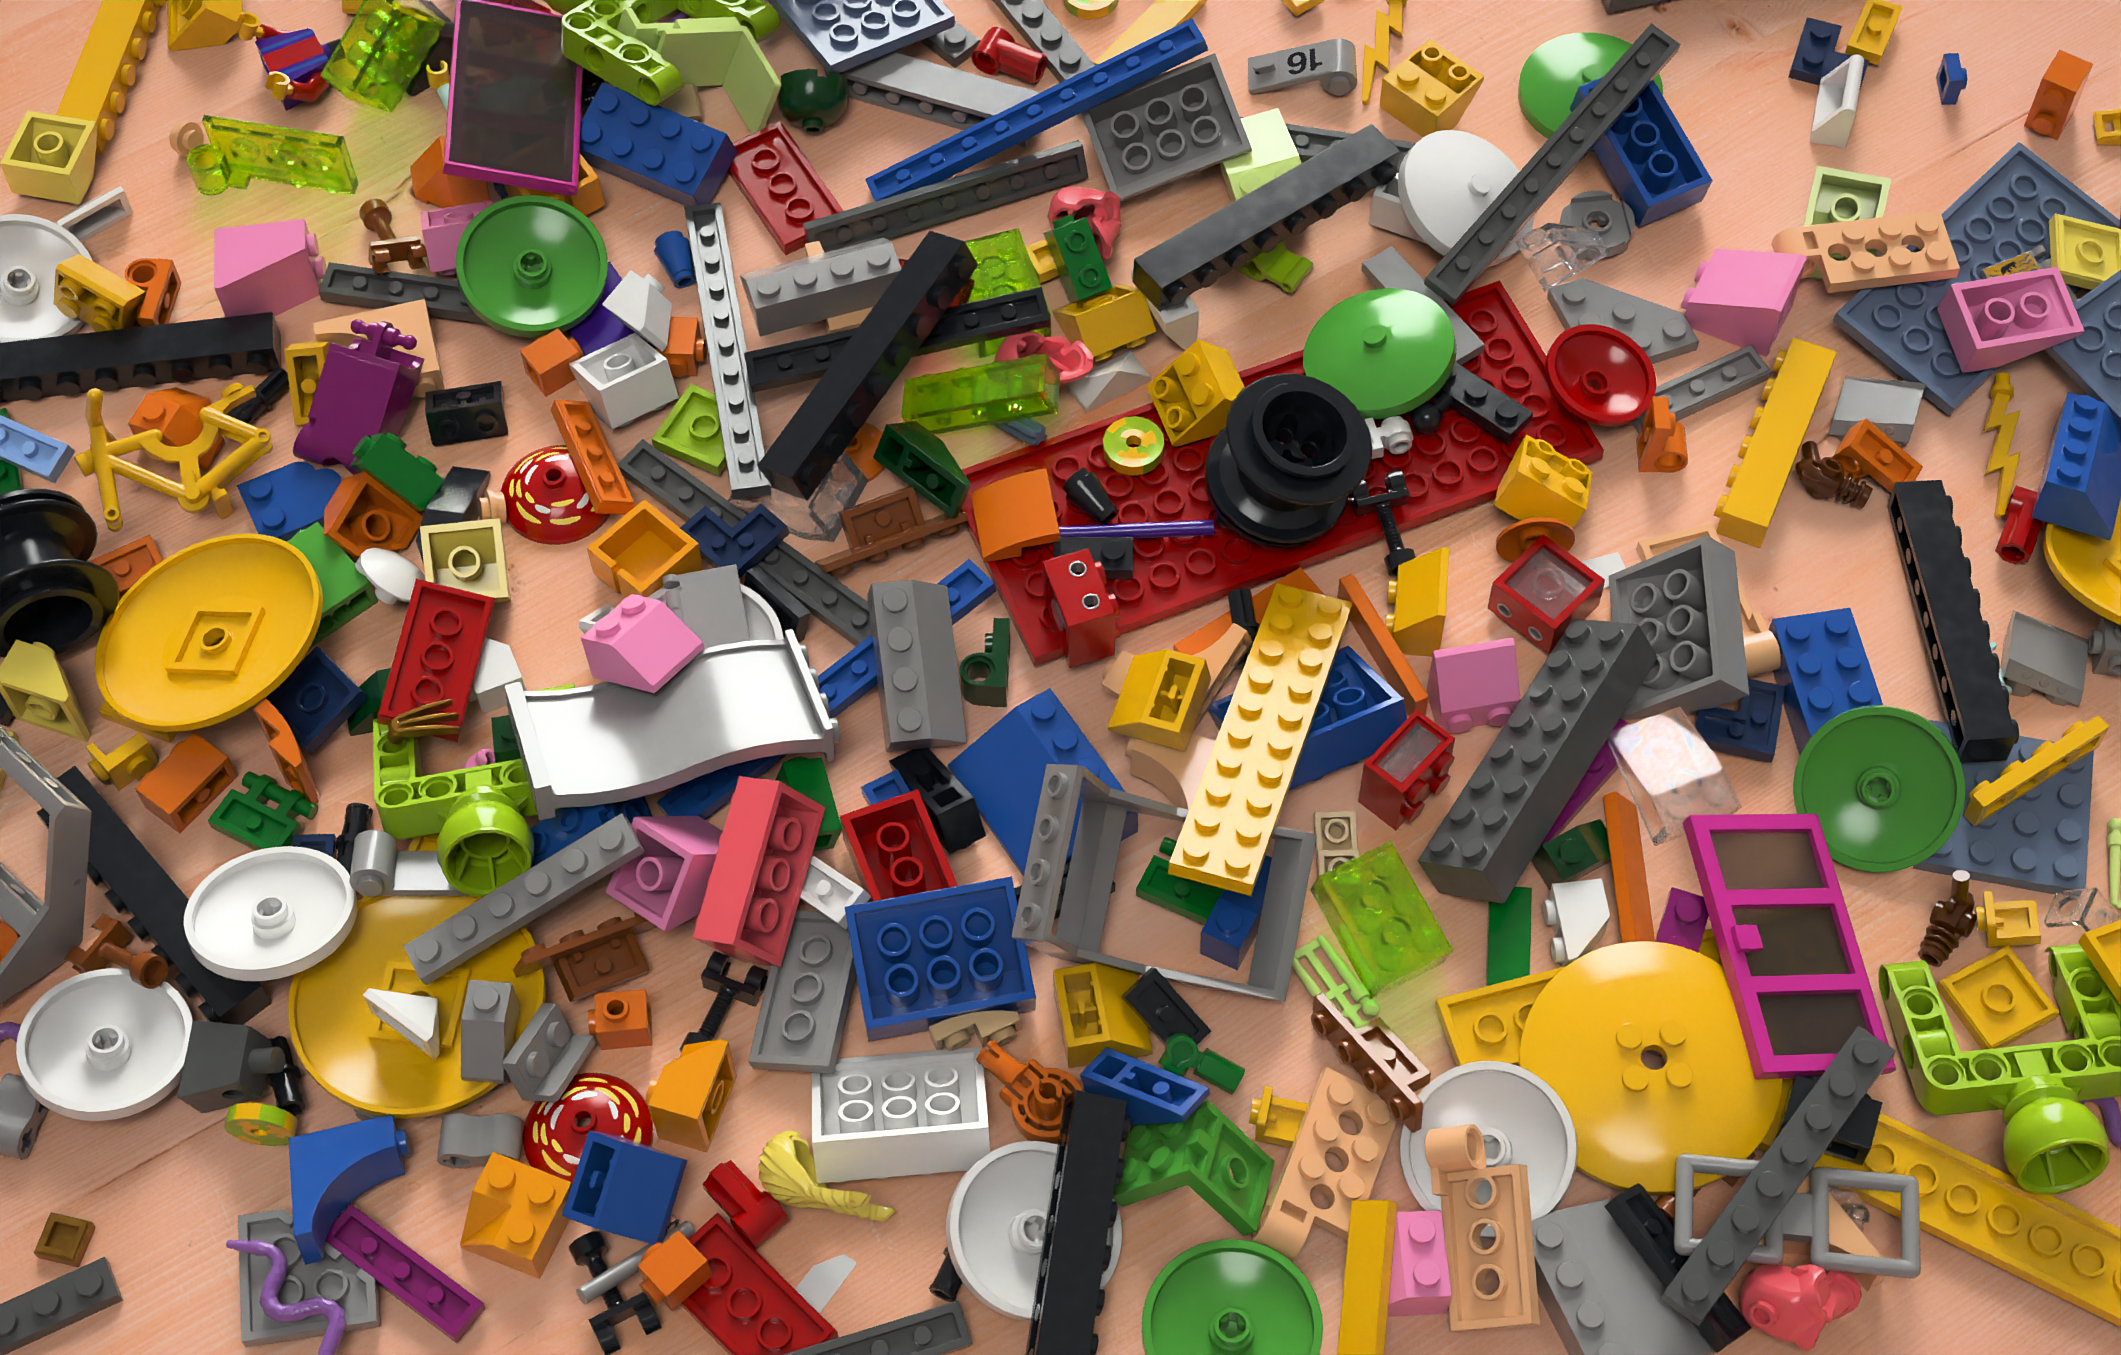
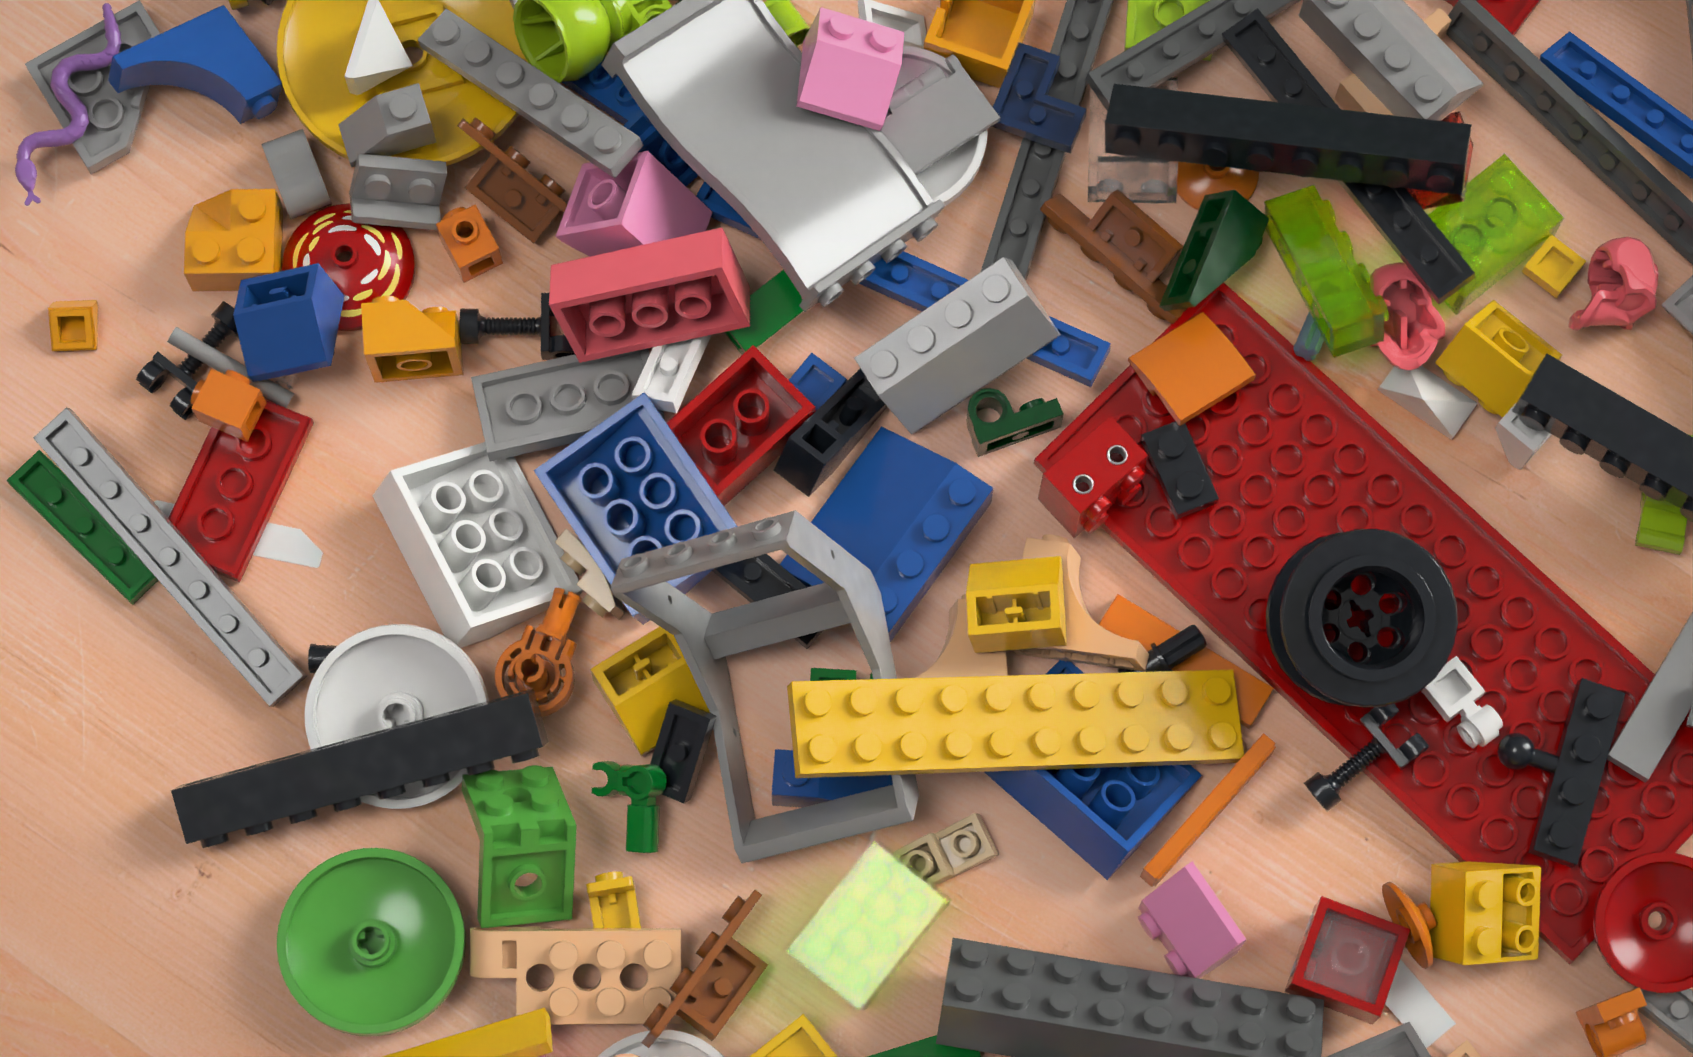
camera: 65 degrees right, 15 degrees up
(405, 1273) = (144, 169): magenta plate -> none
(751, 1212) = (323, 449): red piece -> none
(789, 610) = (981, 194): black plate -> none
(790, 1177) = (358, 473): light yellow hair -> none
(1077, 258) = (1555, 296): green brick -> none
(1089, 495) = (1249, 435): black cone -> none
(1133, 431) = (1337, 473): piece -> none
(1141, 530) = (1233, 499): dark purple bar -> none
(1150, 1092) = (573, 757): blue slope -> none
(1196, 393) = (1433, 496): yellow slope -> none
(1358, 991) = (785, 912): yellowish green piece -> none
(1383, 350) = (1574, 668): bright green dish -> none
(1407, 770) = (1054, 889): red piece -> none
(1419, 603) = (1272, 830): yellow slope -> none

